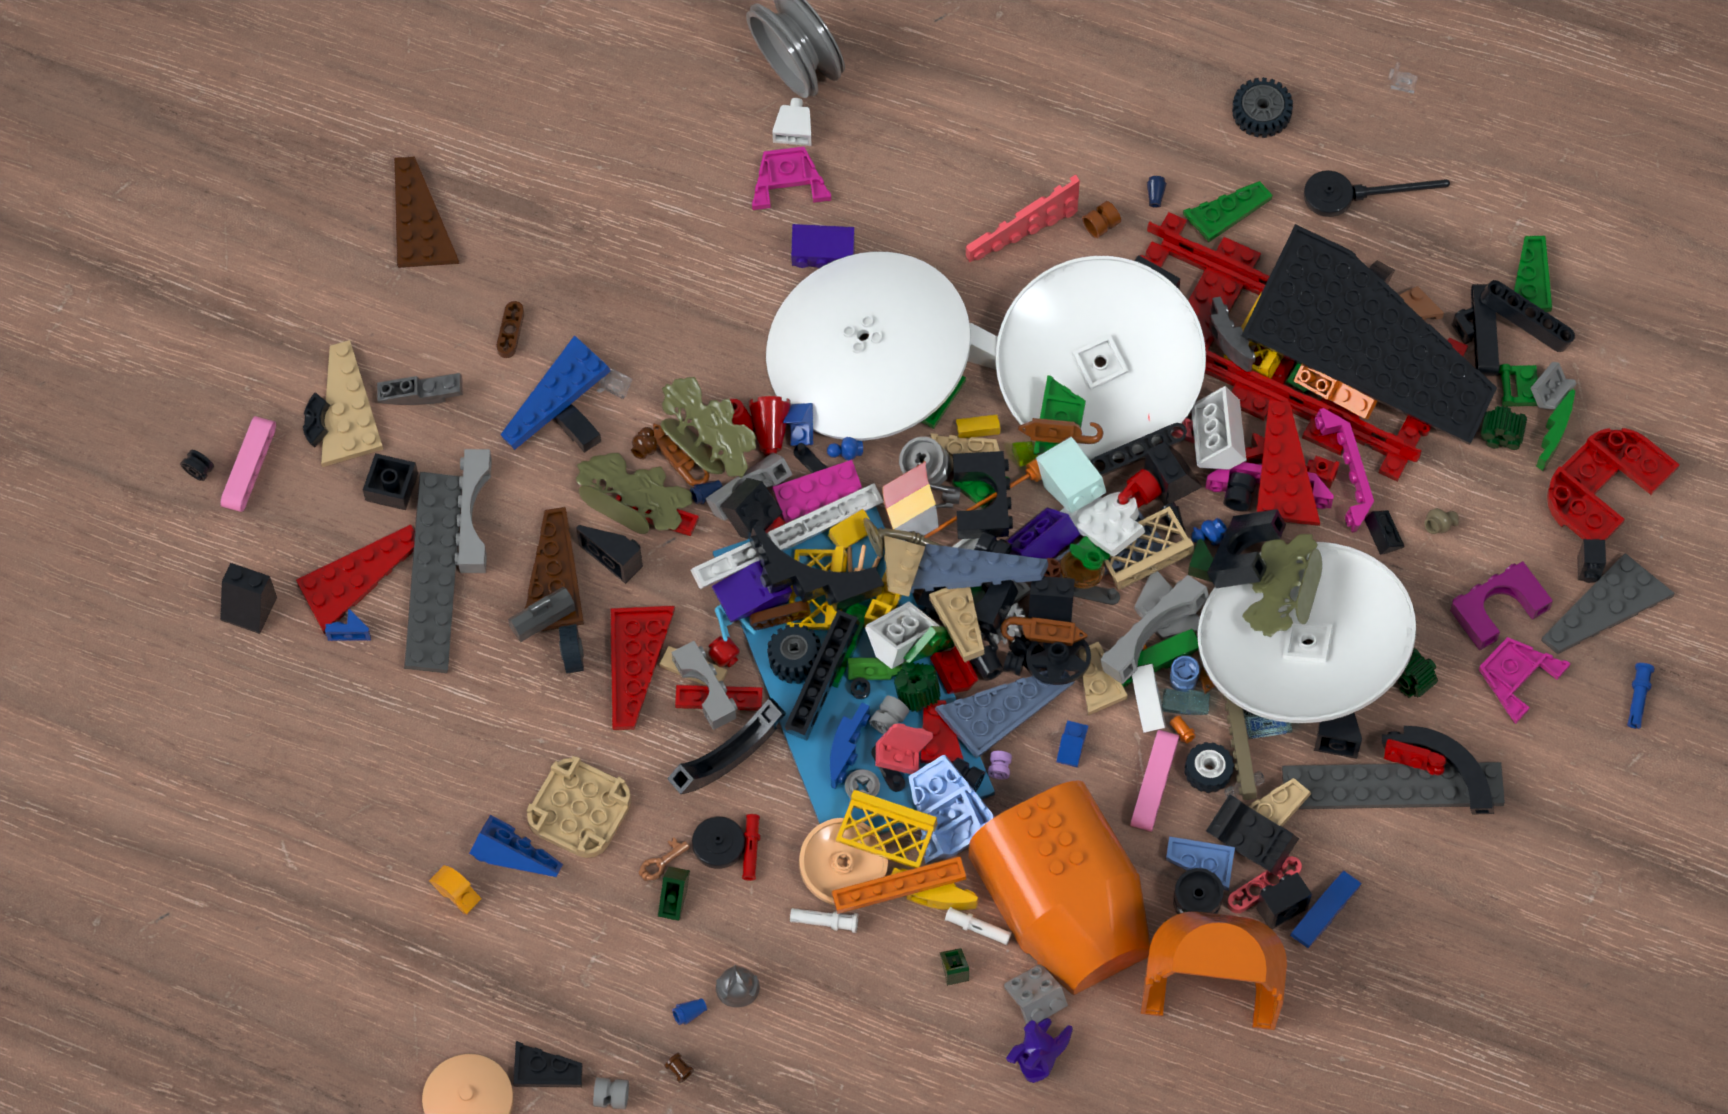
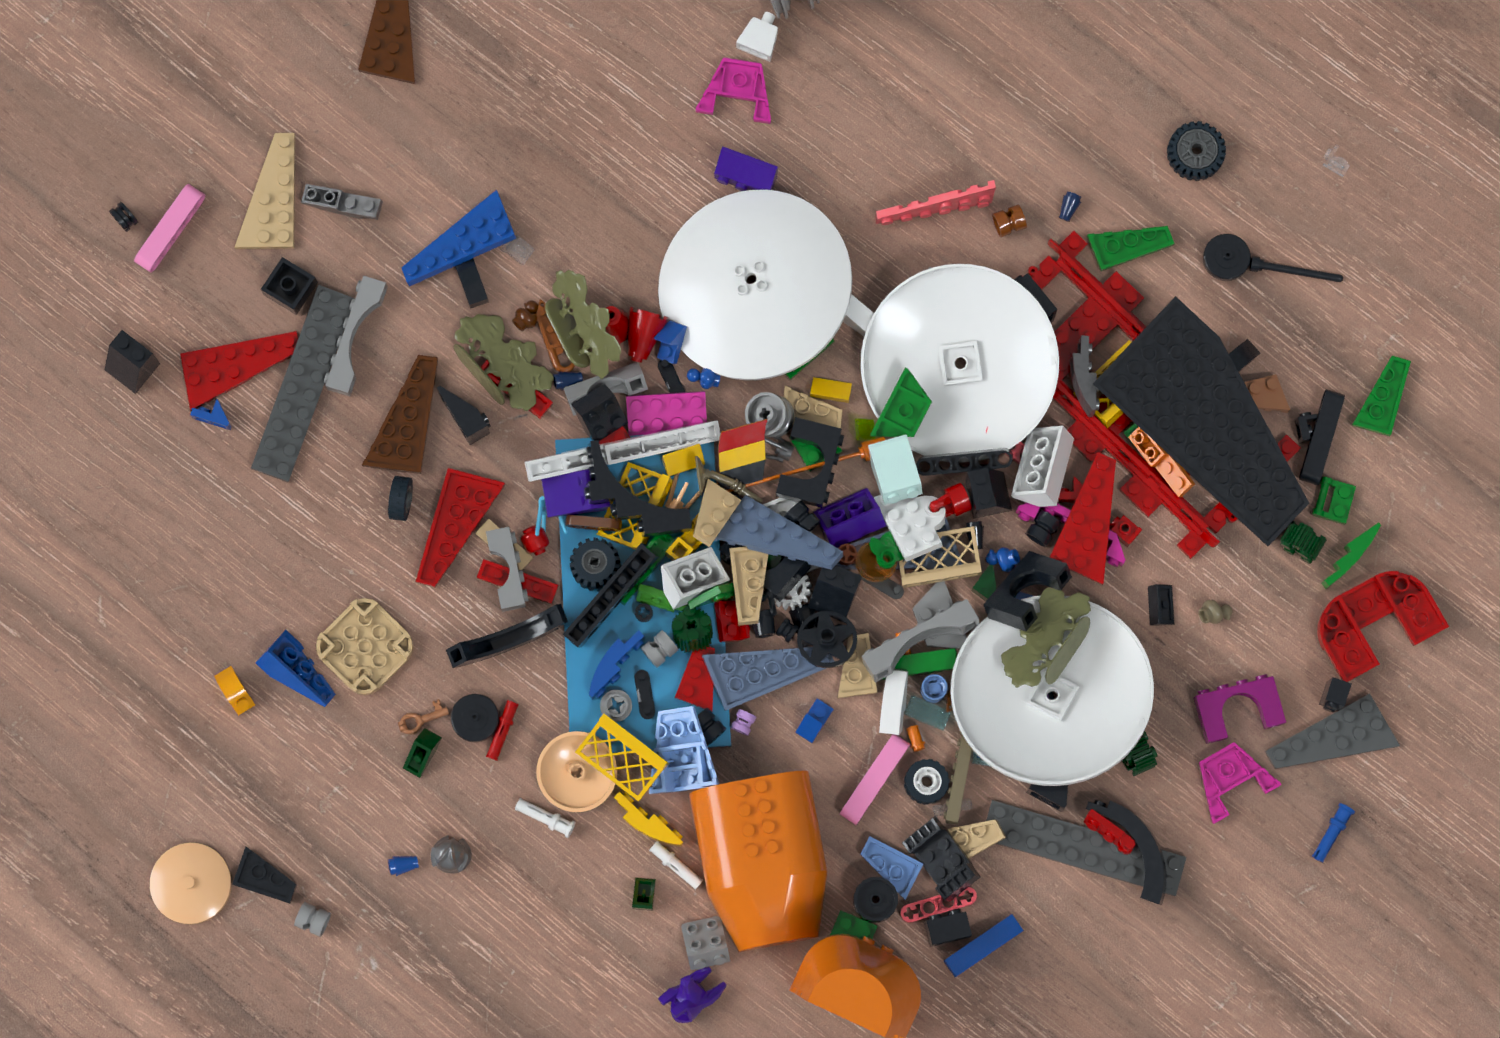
camera: 15 degrees right, 15 degrees up
(314, 421) = (240, 202): black tile -> none
(508, 321) = (452, 156): reddish brown beam -> none
(542, 614) = (384, 457): dark grey piece -> none
(679, 1067) = (378, 913): reddish brown bush -> none
(899, 885) = (616, 811): orange plate -> none
(901, 747) = (658, 686): coral bracket -> none
(1044, 630) = (821, 611): dark orange plate -> none
(1059, 431) = (897, 425): dark orange plate -> none
(1331, 423) = (1145, 489): dark pink slope -> none
(1527, 316) = (1372, 440): black beam -> none
(1552, 387) = (1362, 514): light grey bracket -> none

